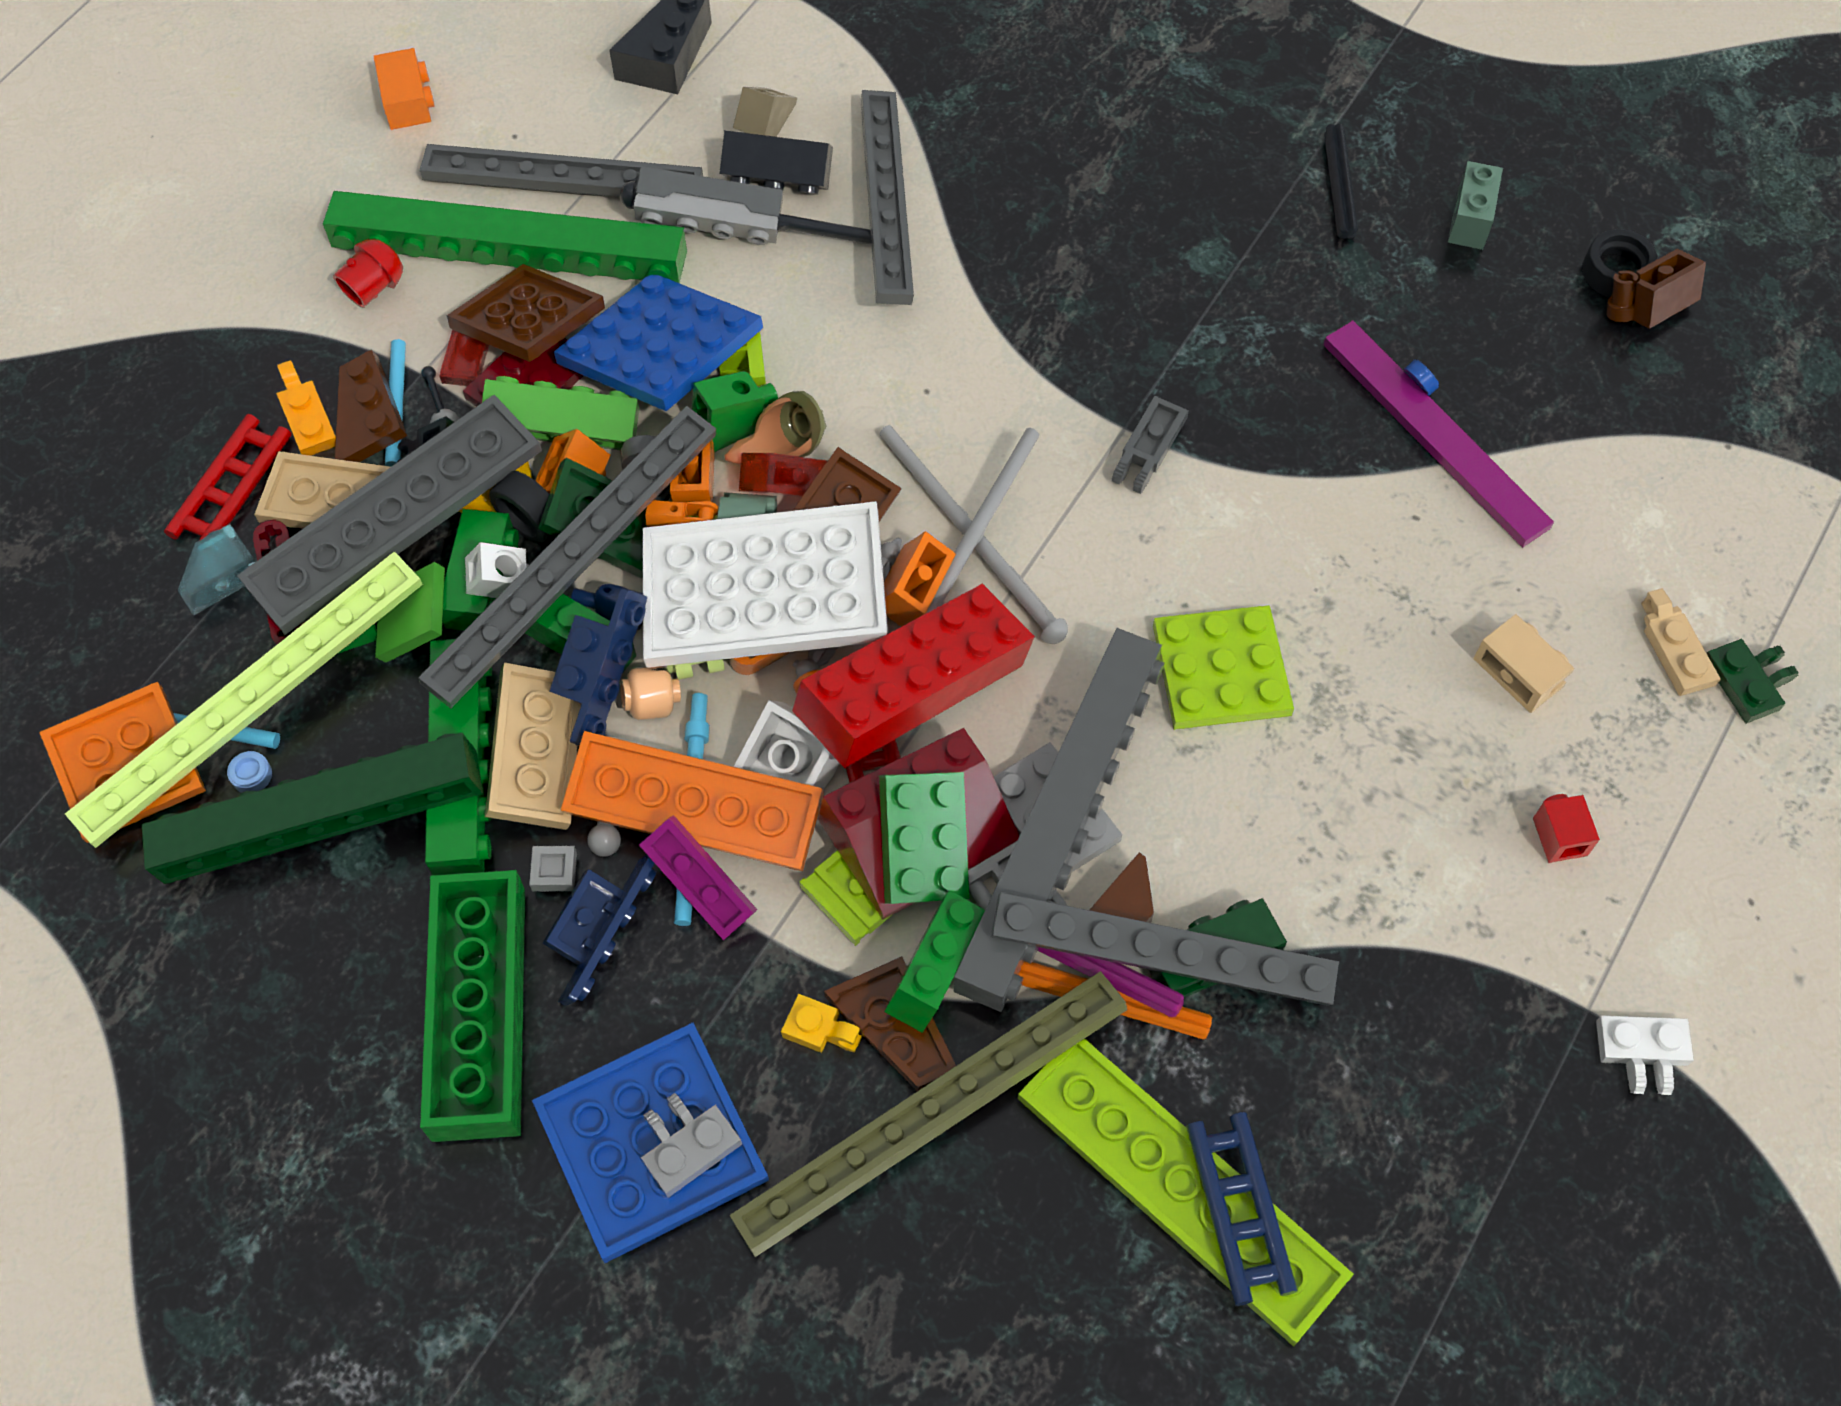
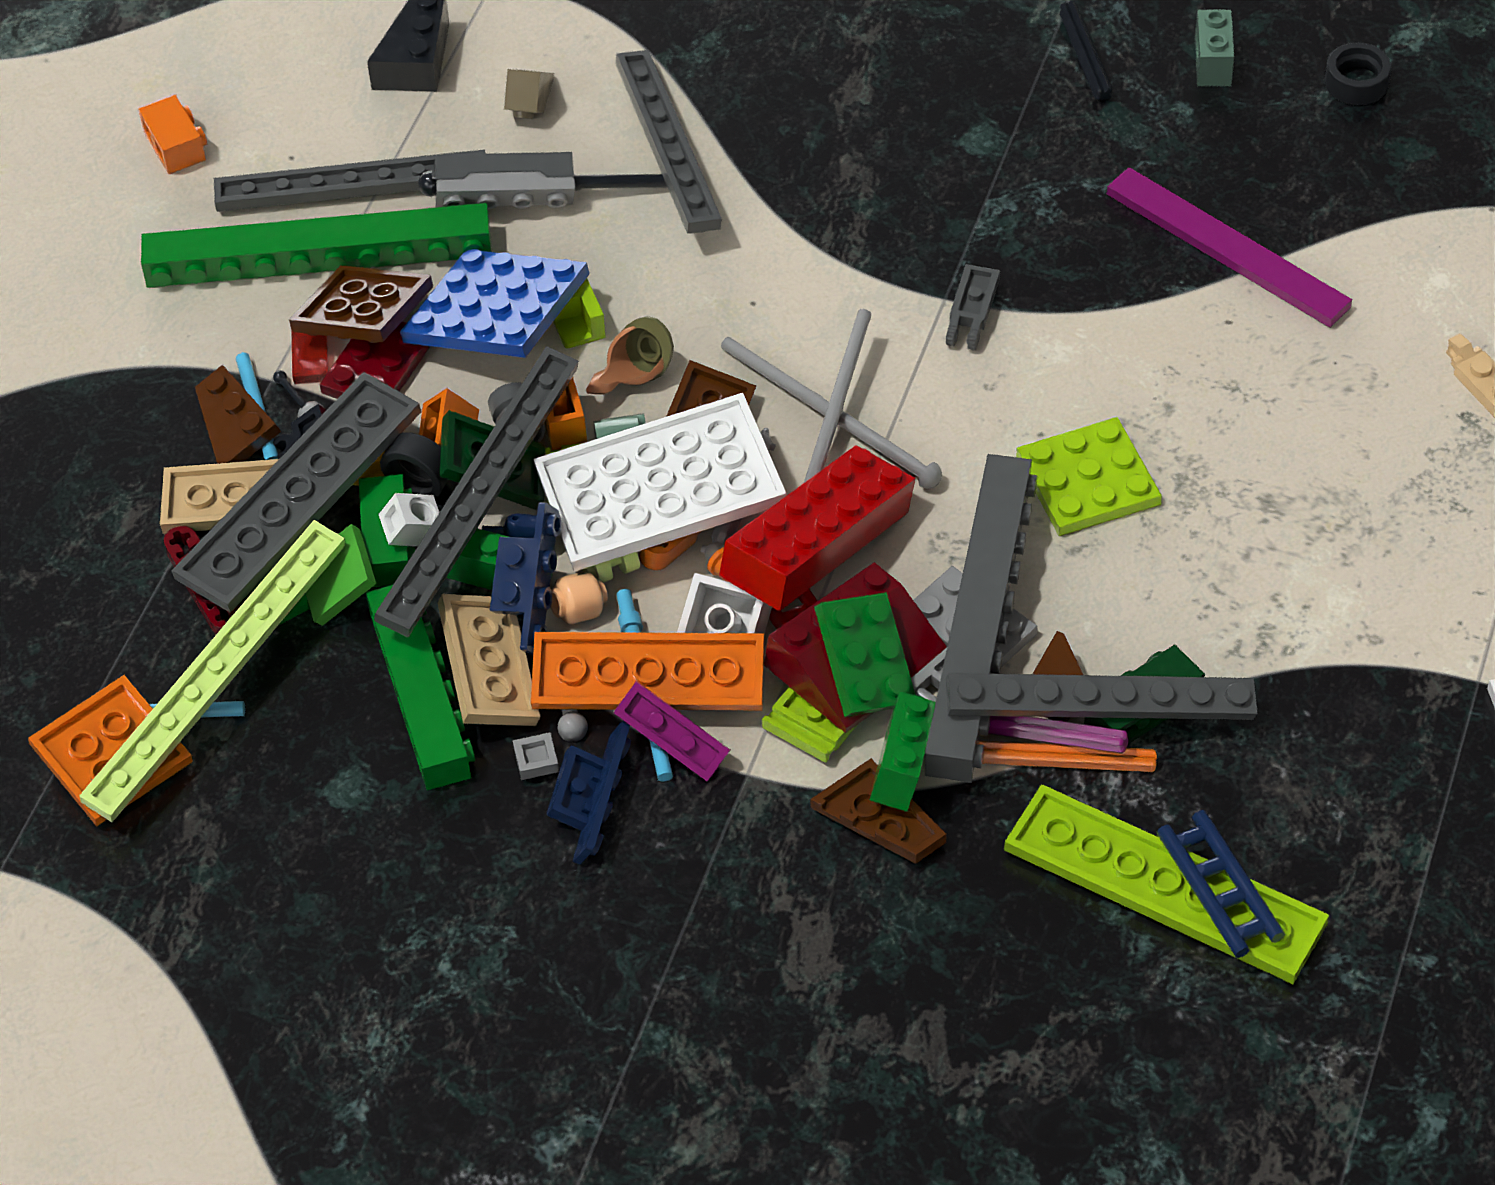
camera: 10 degrees left, 10 degrees down
(214, 569) = (142, 576): clear light blue slope -> none
(227, 462) = (129, 522): red bar -> none
(249, 771) = (227, 739): light blue tile -> none
(305, 413) = (174, 431): light orange plate -> none
(311, 808) = (304, 747): dark green brick -> none
(369, 271) = (199, 296): red piece -> none
(474, 1007) = (504, 873): green brick -> none
(554, 411) = (423, 378): bright green brick -> none
(602, 1135) = (691, 948): blue plate -> none
(671, 512) = (553, 442): orange bar -> none
(690, 1149) = (731, 942): light grey hinge -> none
(731, 405) = (584, 340): green torso -> none
(776, 161) = (555, 129): black brick -> none
(778, 473) = (640, 393): clear red slope -> none
(816, 1023) = (810, 830): yellow plate -> none
(916, 578) = (795, 449): orange brick -> none
(927, 1113) = (930, 872): olive plate -> none
(1422, 376) = (1203, 201): blue tile -> none
(1523, 663) = (1353, 418): tan brick -> none
(1565, 828) = (1423, 541): red brick -> none
(1657, 289) = (1395, 88): reddish brown hinge -> none

